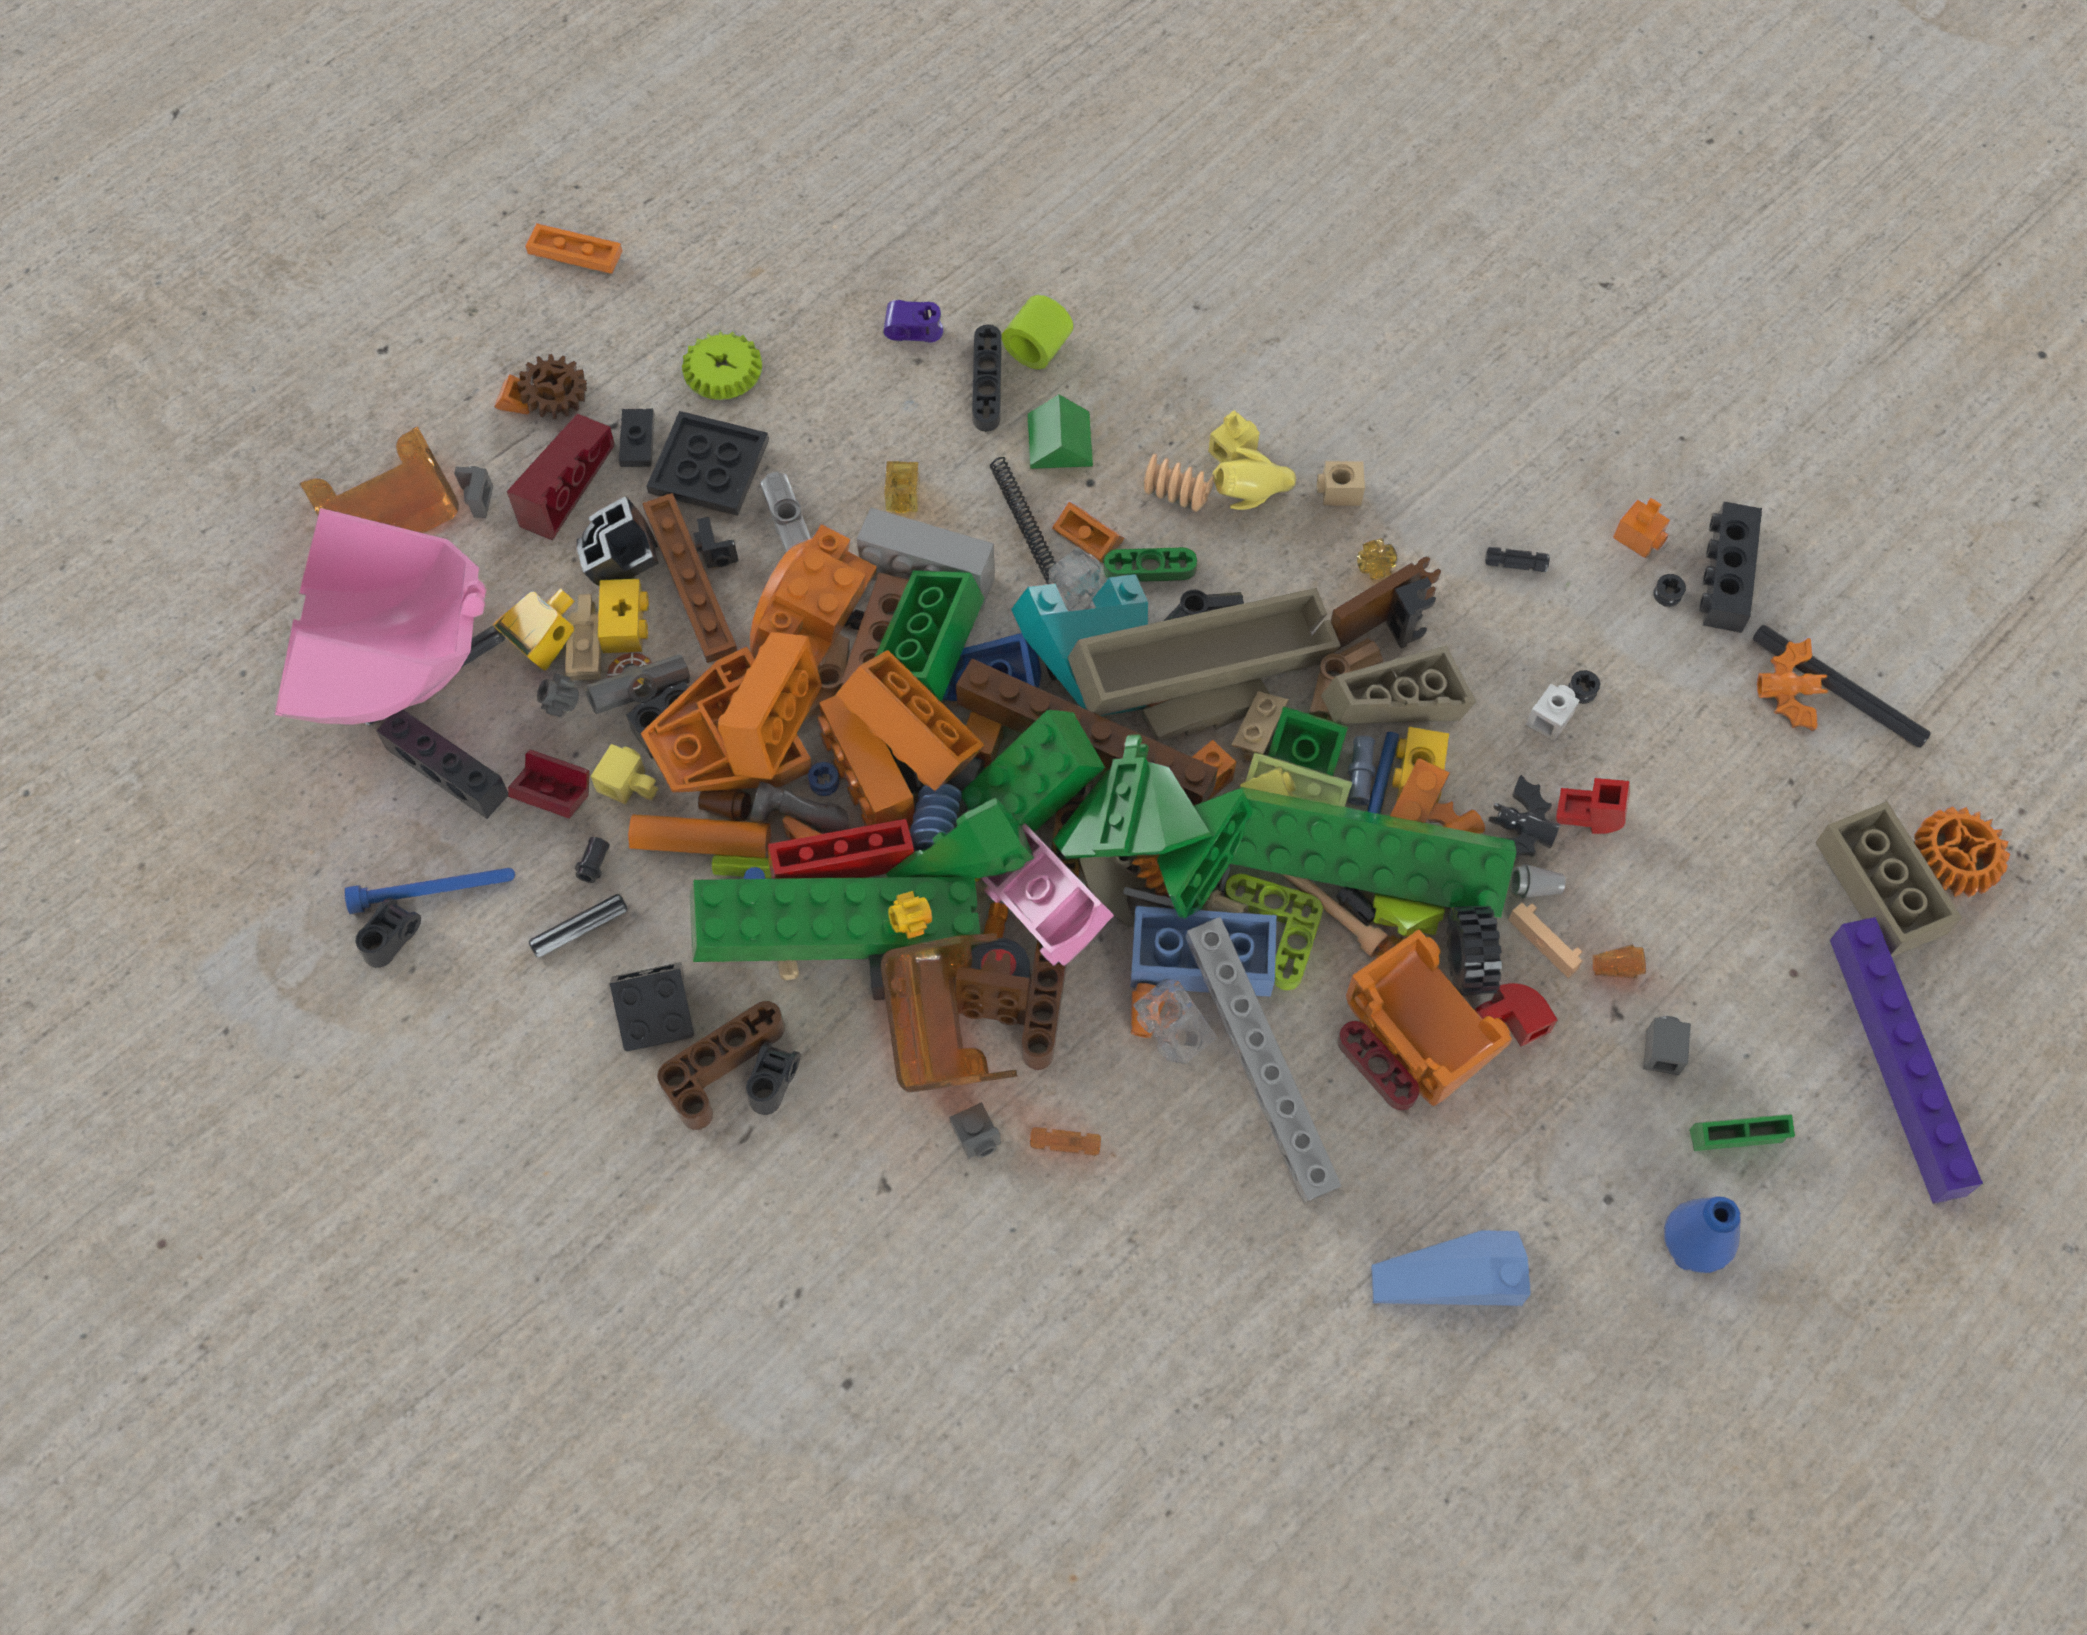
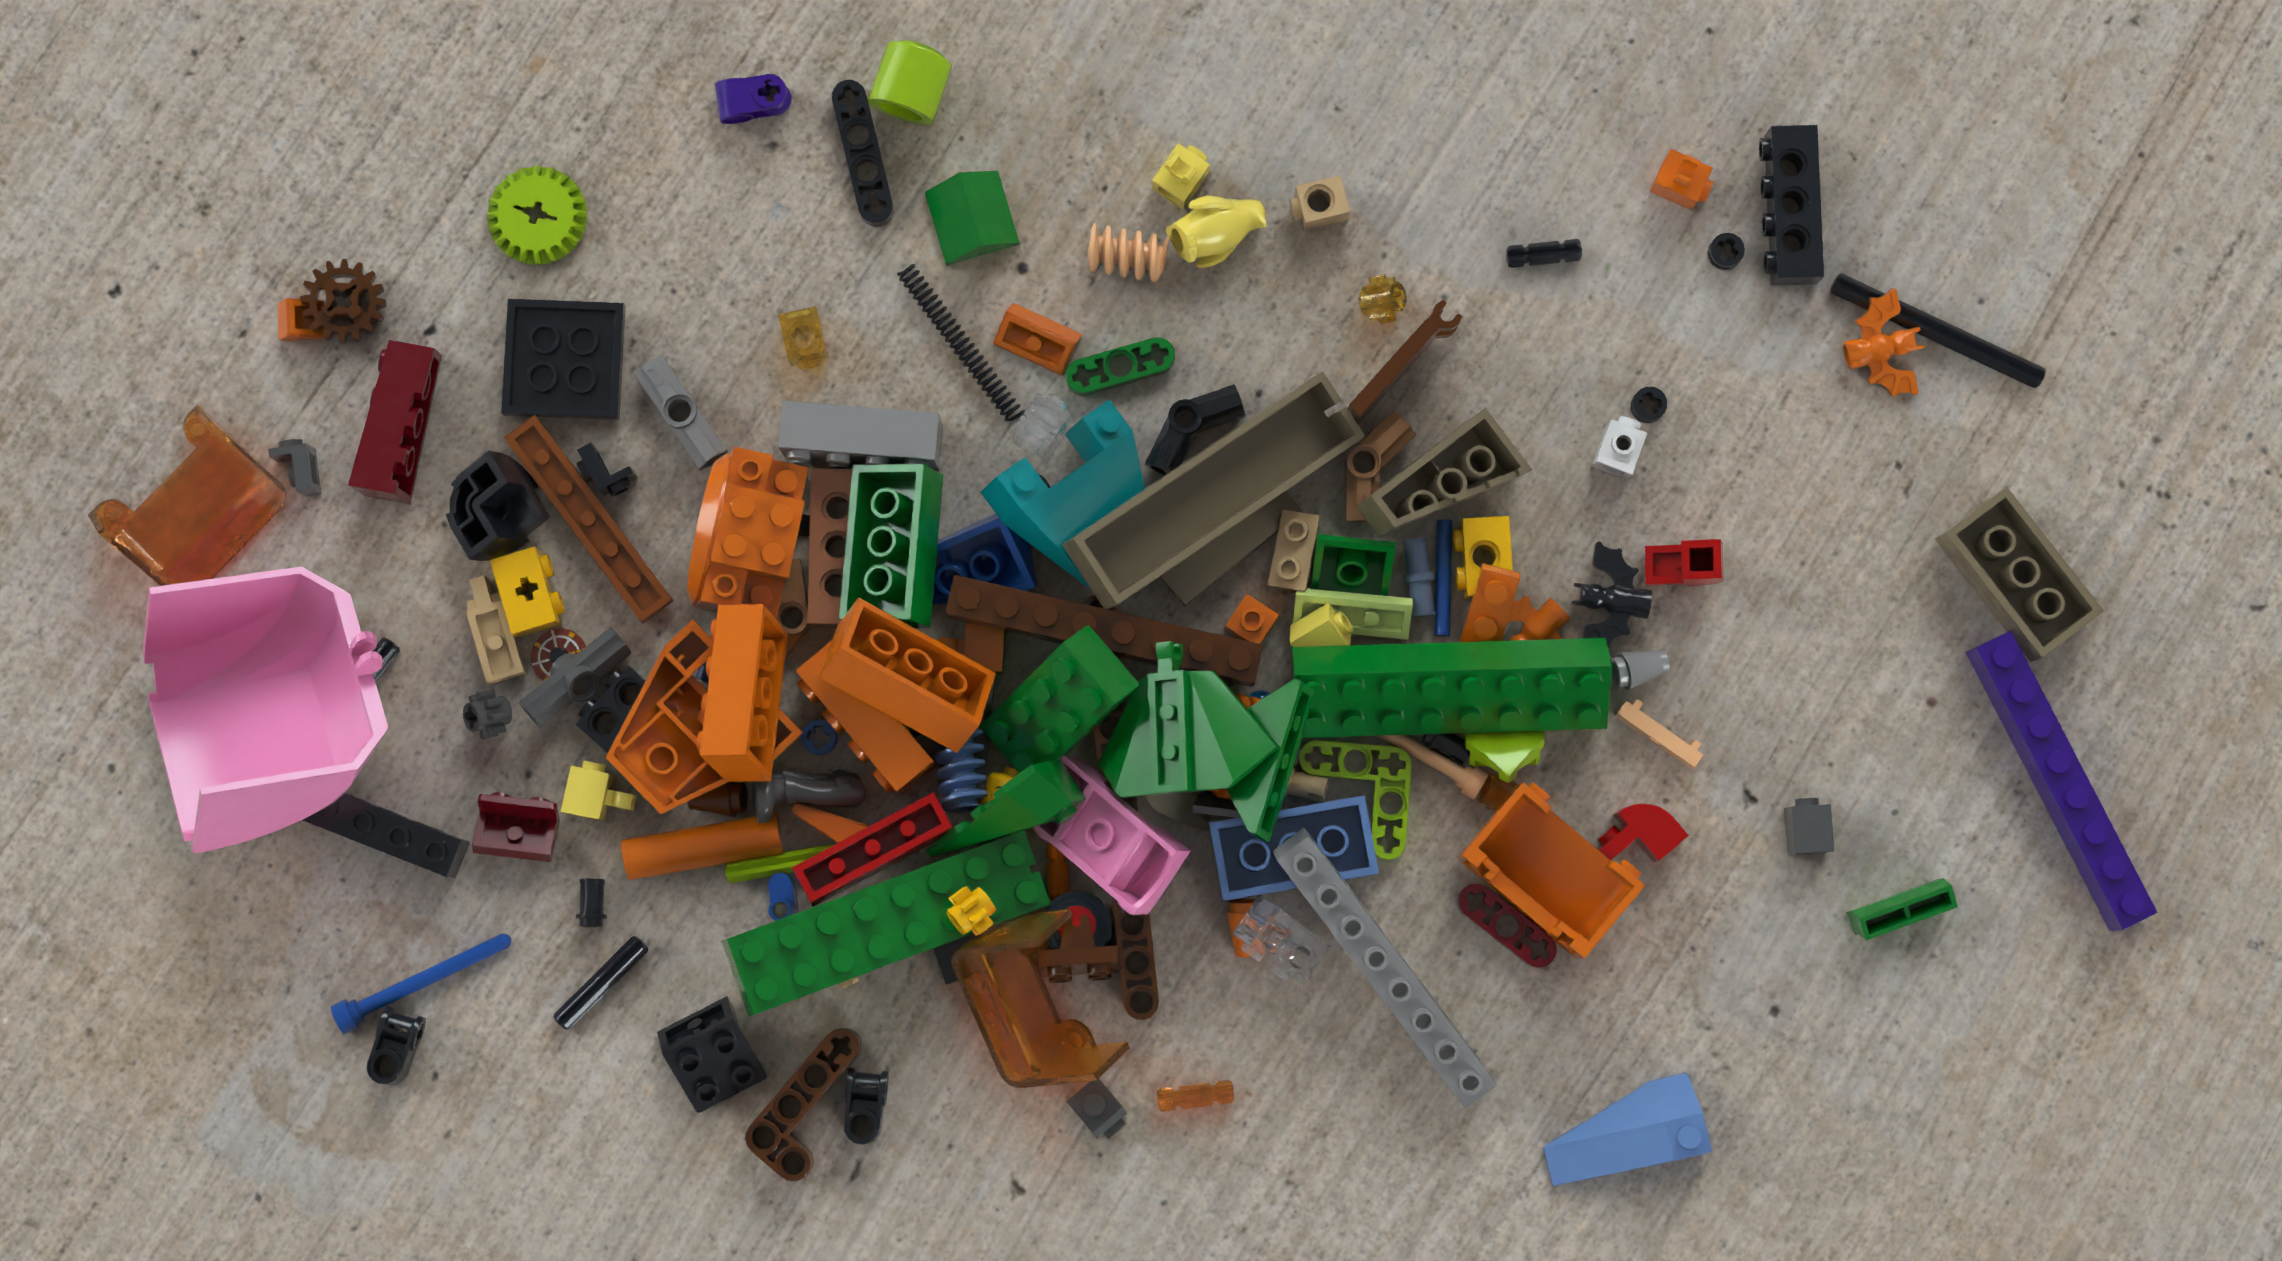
camera: 15 degrees left, 20 degrees up
(538, 626) = (437, 637): yellow torso -> none
(574, 248) = (302, 91): orange plate -> none
(636, 438) = (466, 342): black plate -> none
(1407, 609) = (1431, 370): black hinge -> none
(1474, 950) = (1585, 780): black bush -> none
(1620, 962) = (1744, 742): clear orange cone -> none
(1703, 1233) = (1864, 1027): blue cone -> none
(1965, 842) = (2100, 528): orange gear -> none

